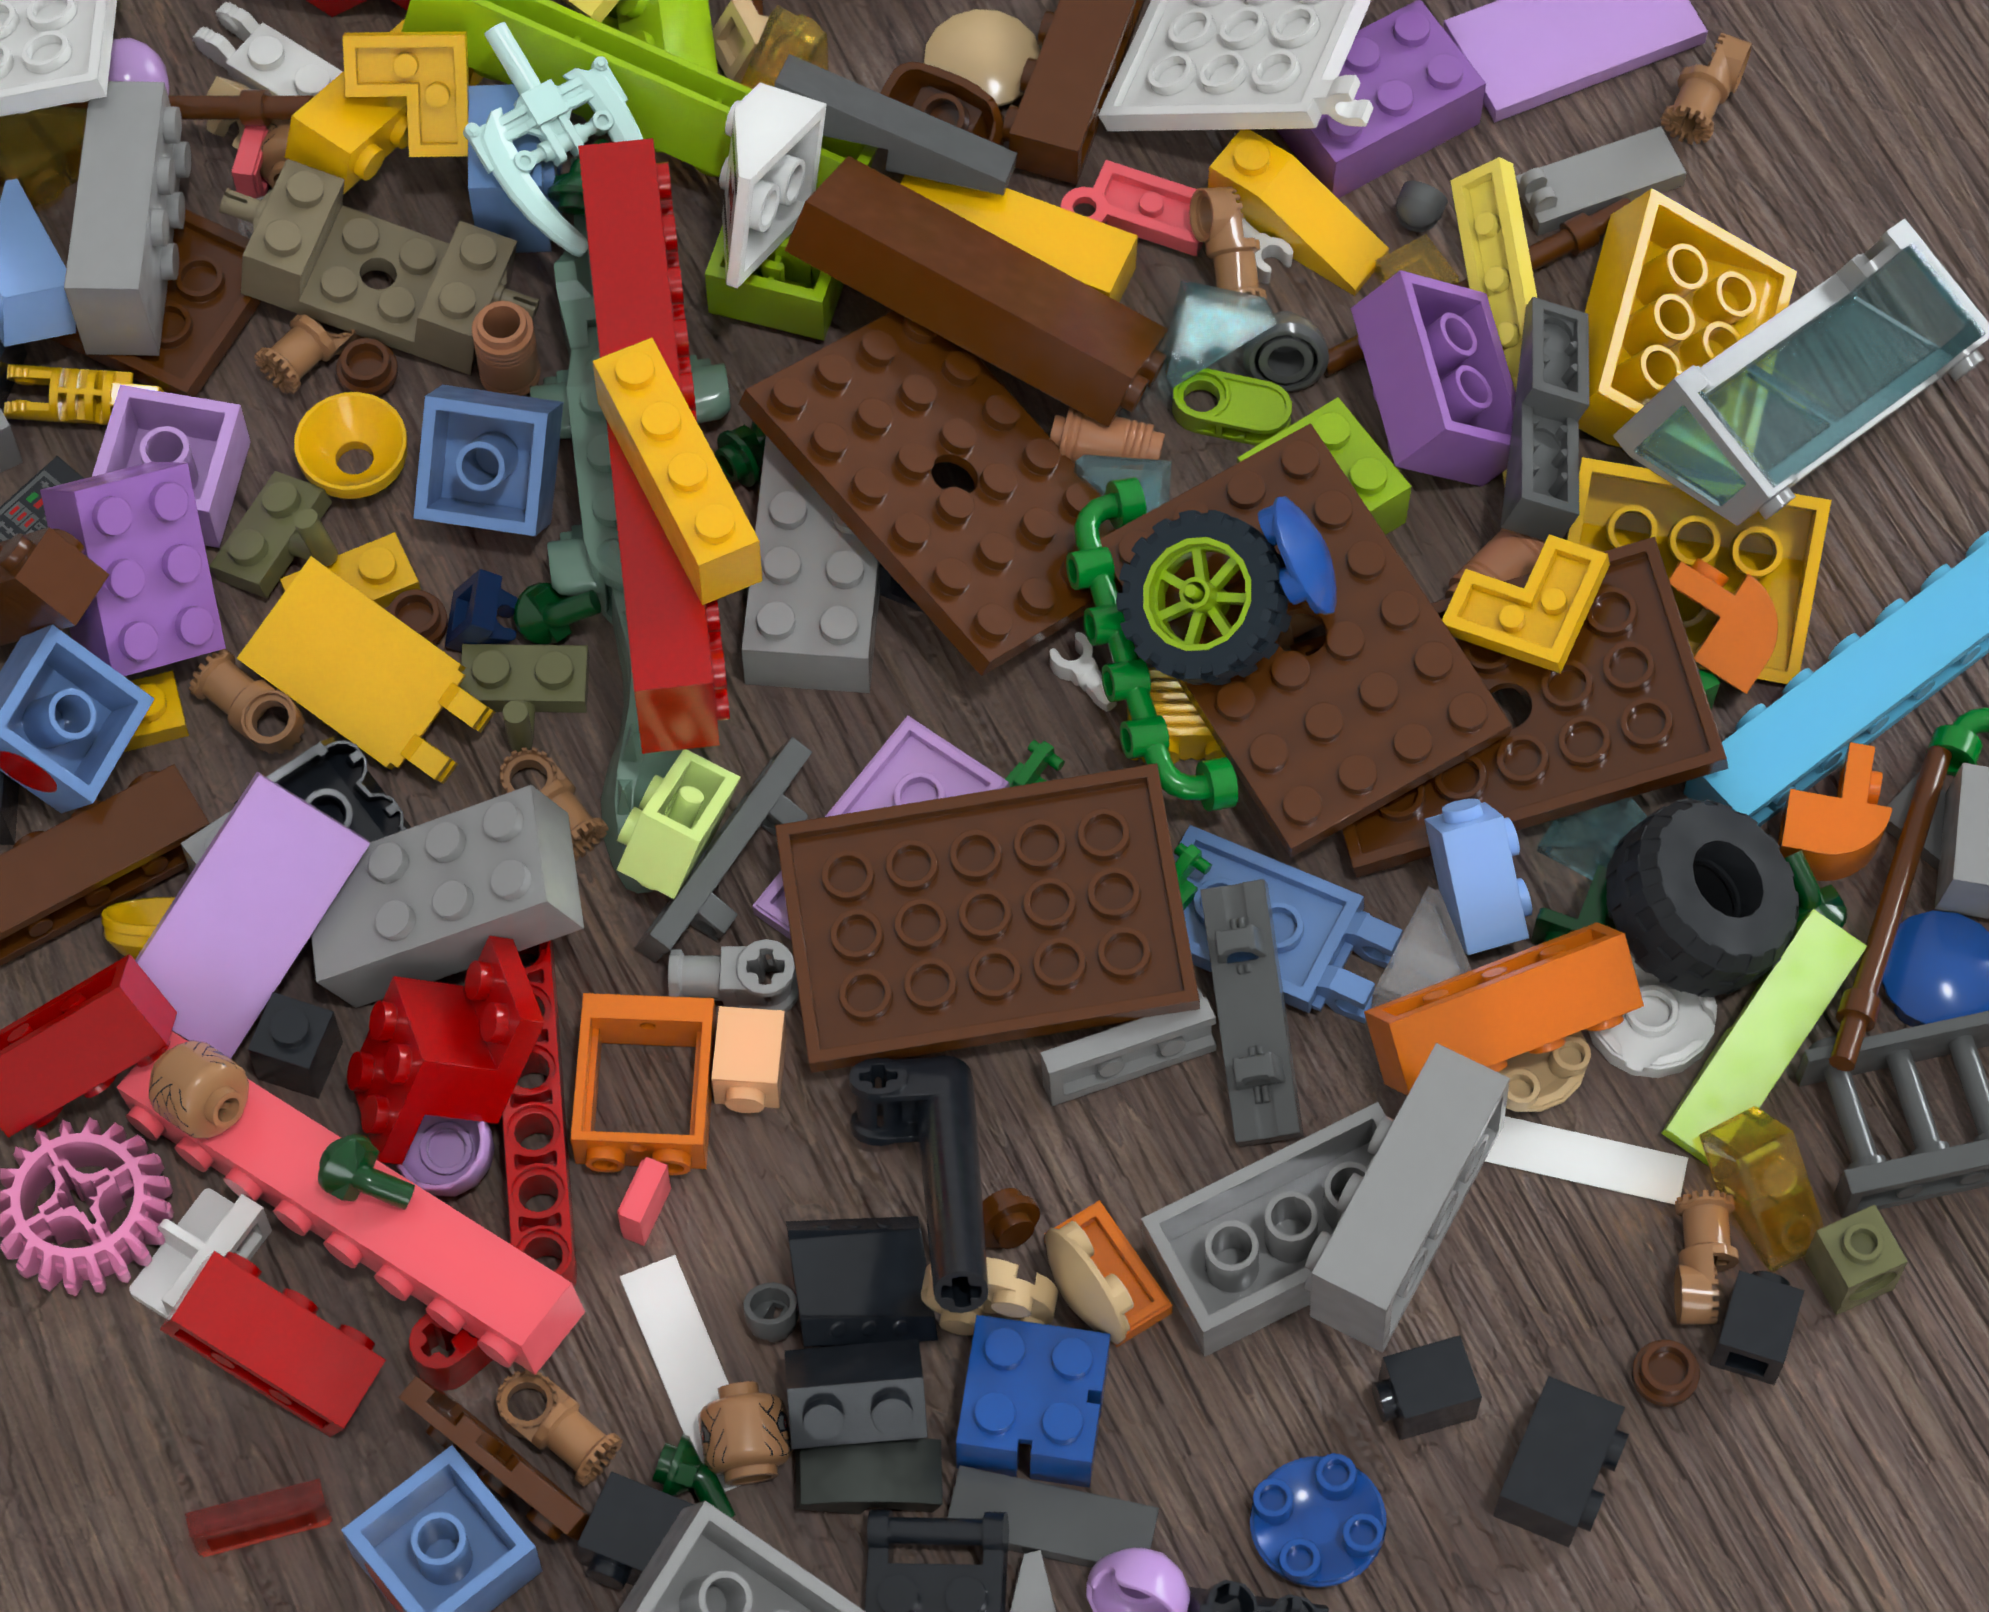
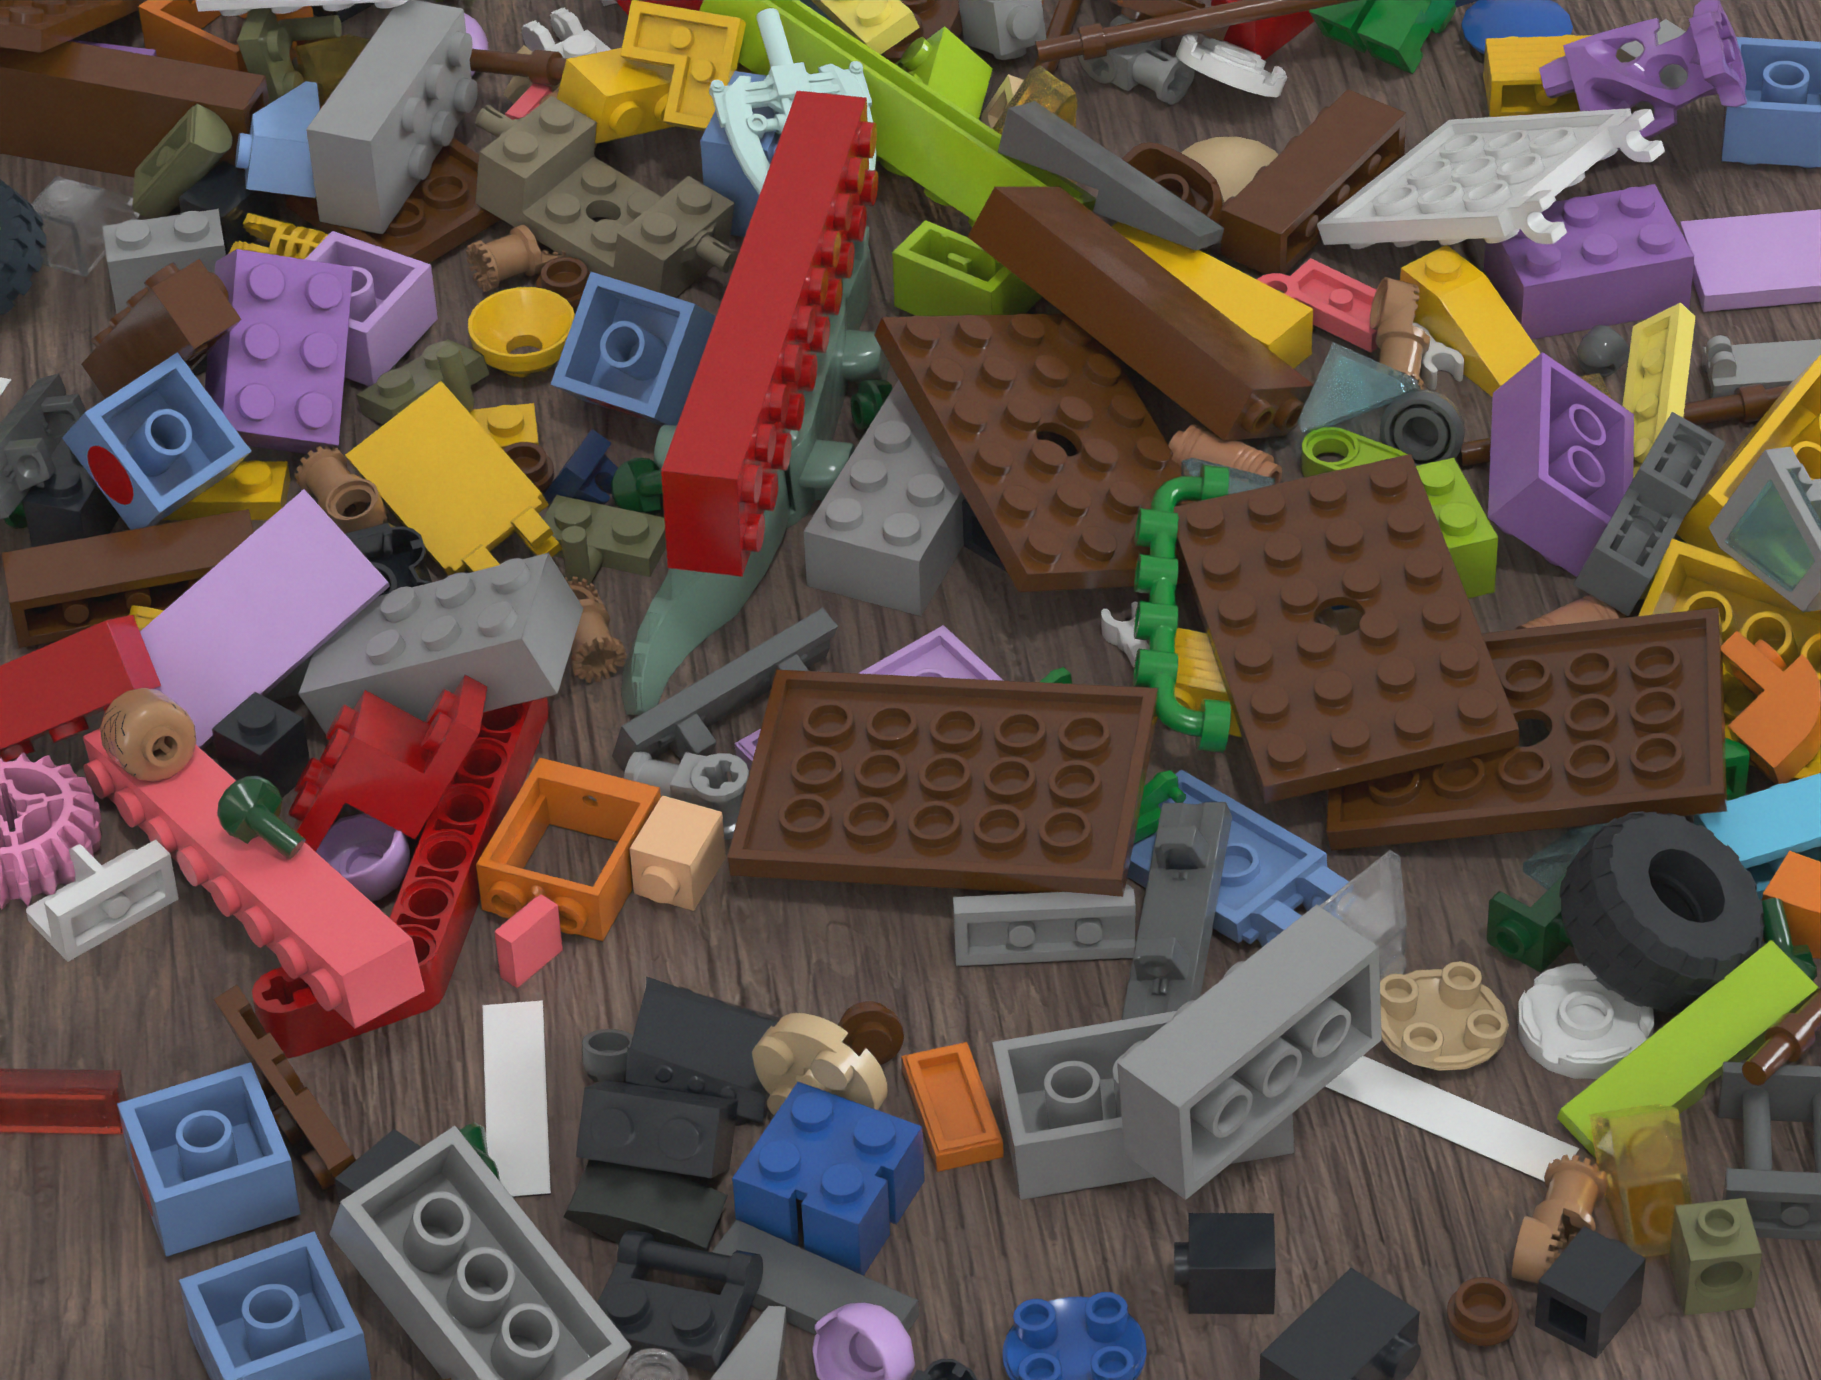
camera: 20 degrees right, 20 degrees down
(274, 1342) = (128, 957): red brick -> none
(506, 348) = (691, 268): nougat head -> none
(559, 1427) = (365, 1095): medium nougat connector -> none
(675, 822) = (681, 643): yellowish green brick -> none
(677, 471) = (770, 311): yellow brick -> none
(744, 1434) = (537, 1141): medium nougat head -> none
(767, 173) = (962, 164): white slope -> none
(935, 1106) = (822, 932): black axle -> none
(1092, 1297) = (914, 1082): tan dish -> none
(1154, 569) = (1276, 573): black wheel -> none
(1307, 560) = (1349, 530): blue dish -> none
(1477, 874) = (1441, 849): light blue brick -> none
(1510, 1005) = (1463, 951): orange brick -> none
(1536, 620) = (1578, 649): yellow plate -> none

